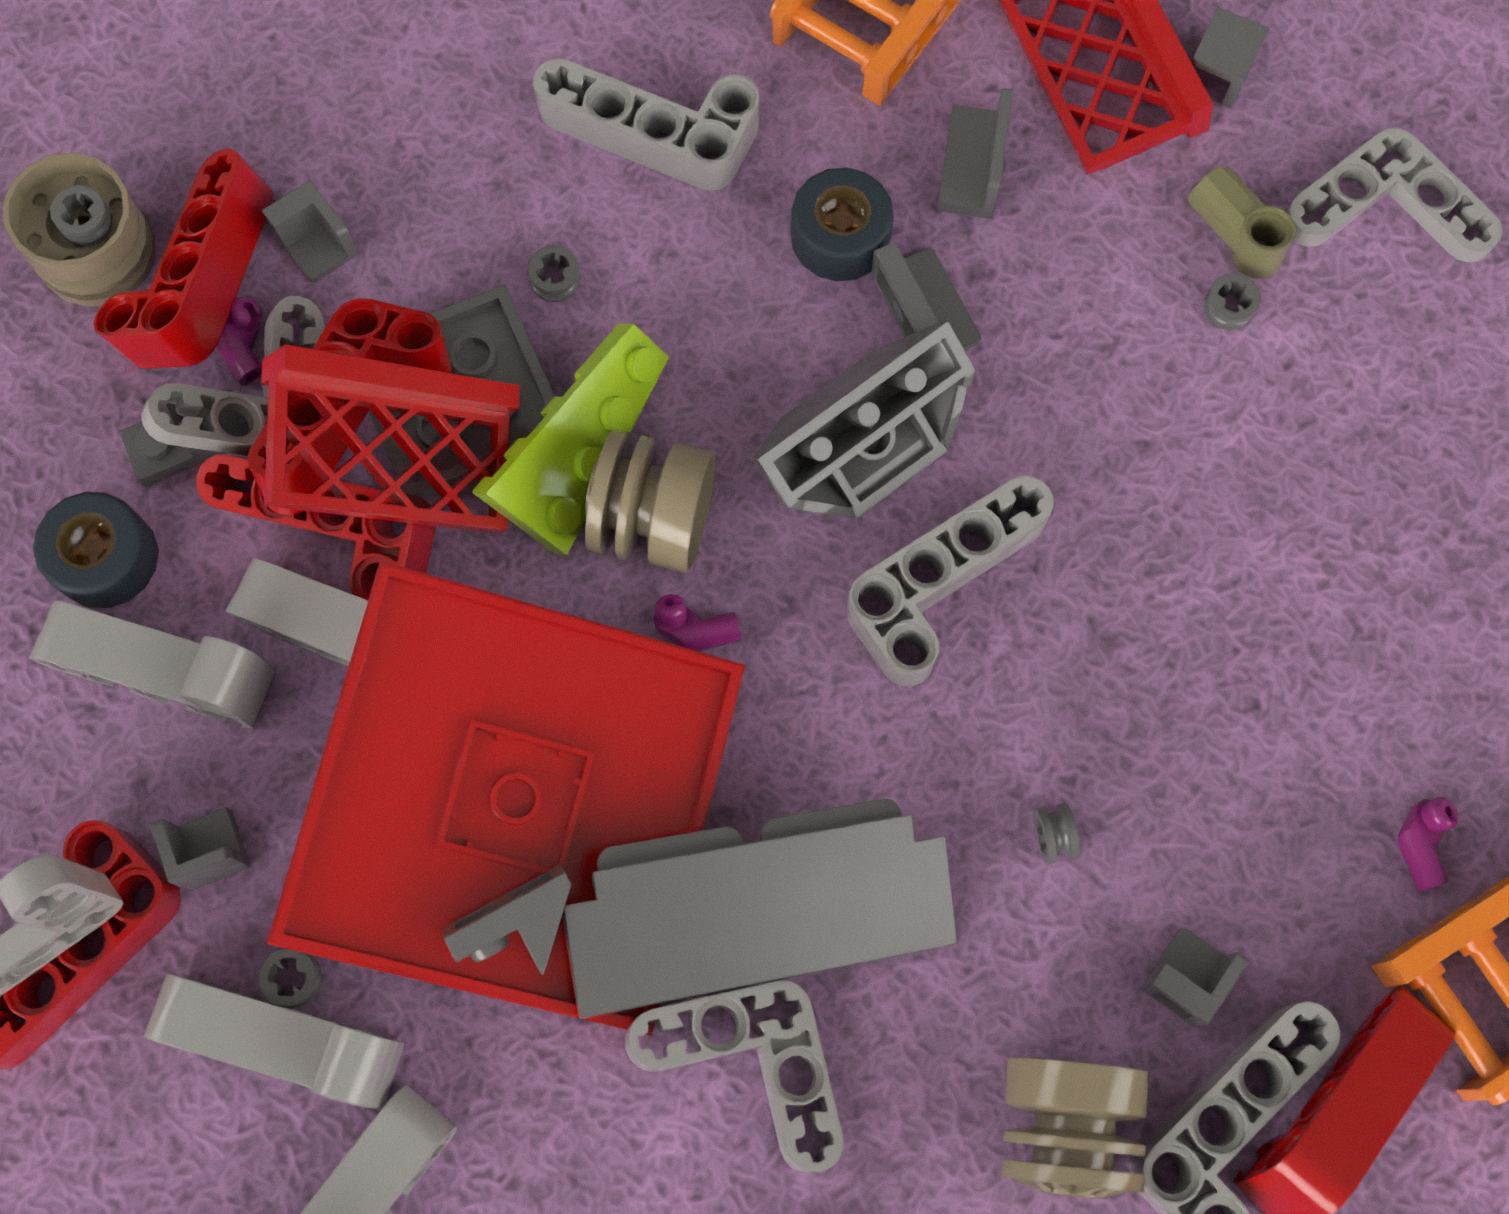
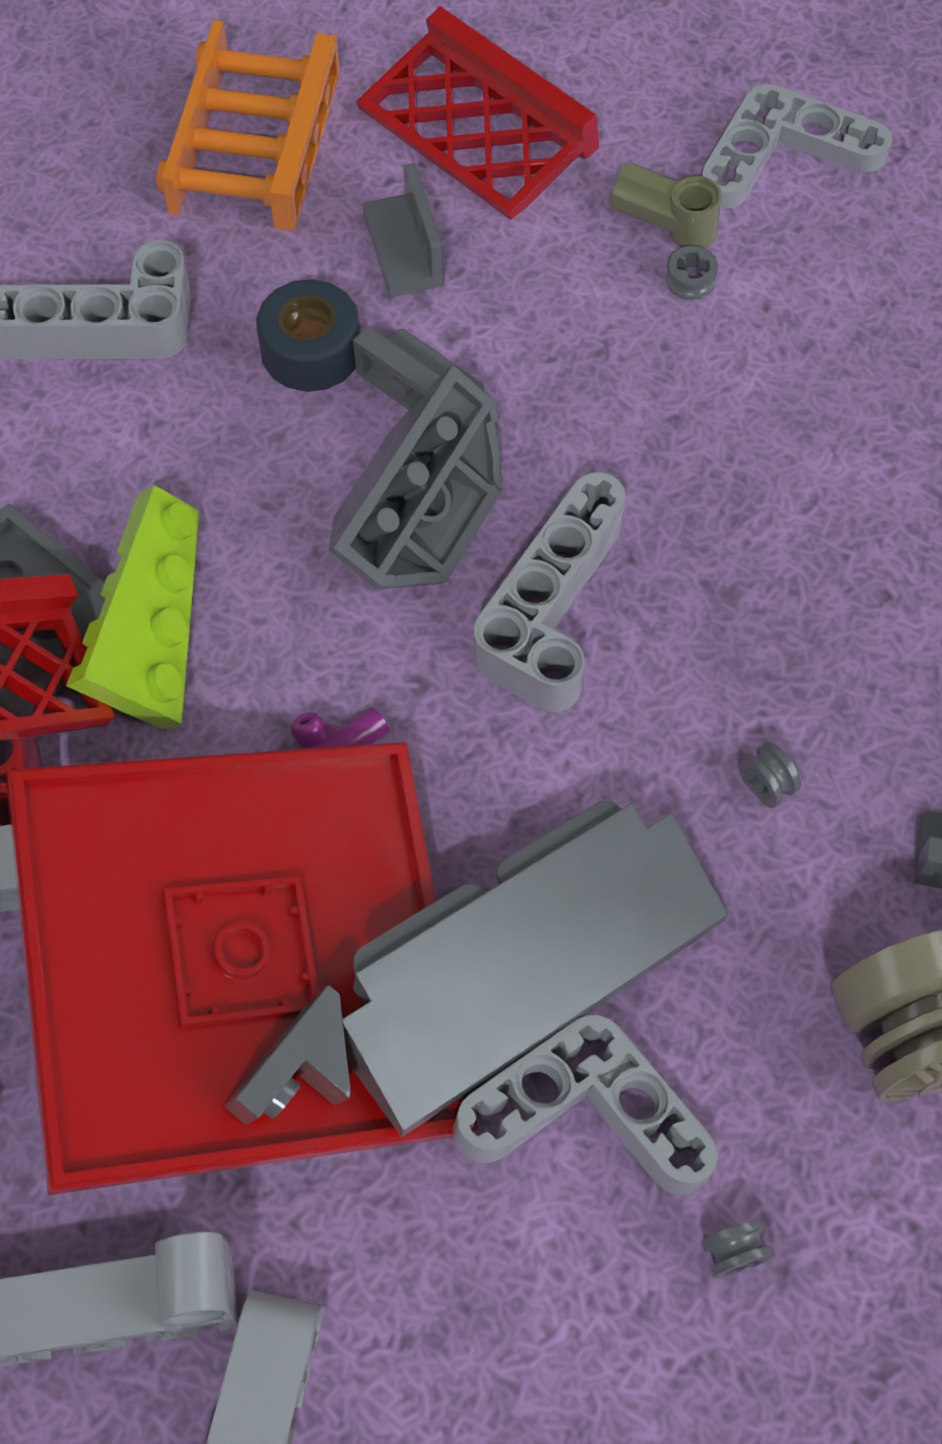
camera: 25 degrees left, 10 degrees down
(275, 992) = (93, 1223): dark grey bush -> none
(561, 257) = (51, 463): dark grey bush -> none
(638, 498) = (244, 631): dark tan wheel -> none
(1229, 50) = (587, 70): dark grey panel -> none

